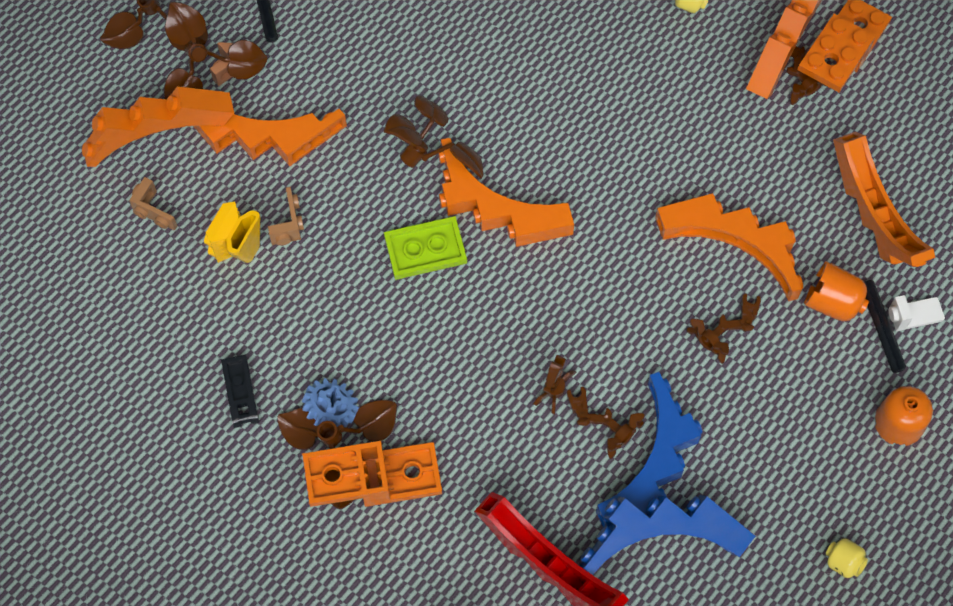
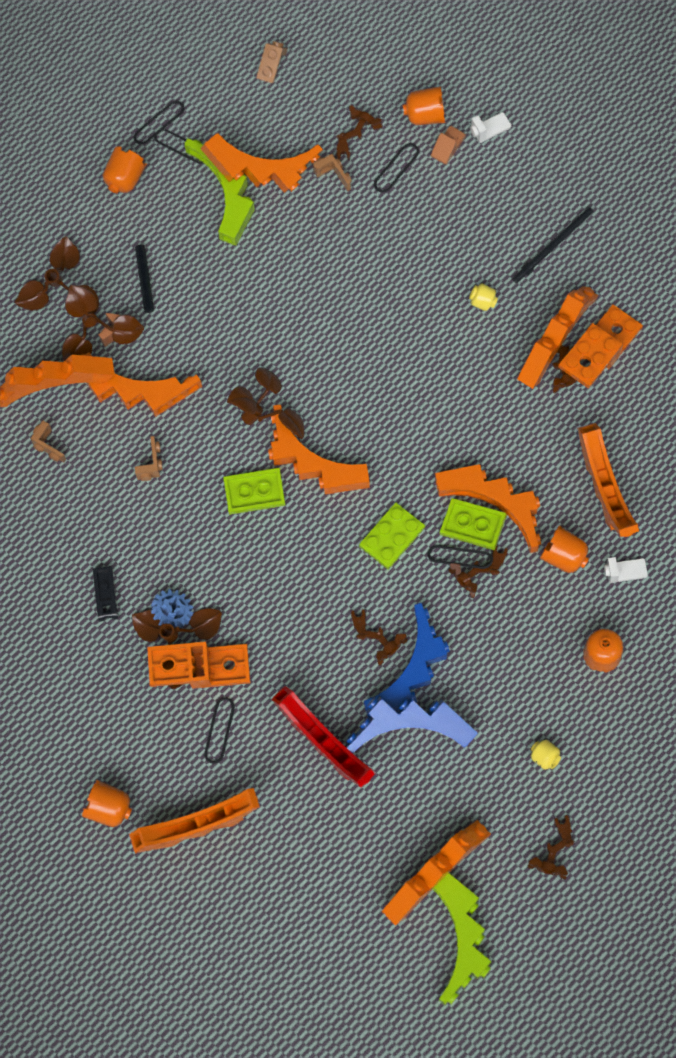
camera: 10 degrees right, 5 degrees up
(233, 234) = (107, 471): yellow piece -> none
(416, 562) = (211, 729): none -> black piece
(554, 384) = (341, 605): reddish brown piece -> none
(608, 292) = (392, 536): none -> lime plate
(701, 302) = (460, 549): none -> black piece
(712, 269) = (473, 524): none -> lime plate
(884, 328) = (599, 578): black axle -> none

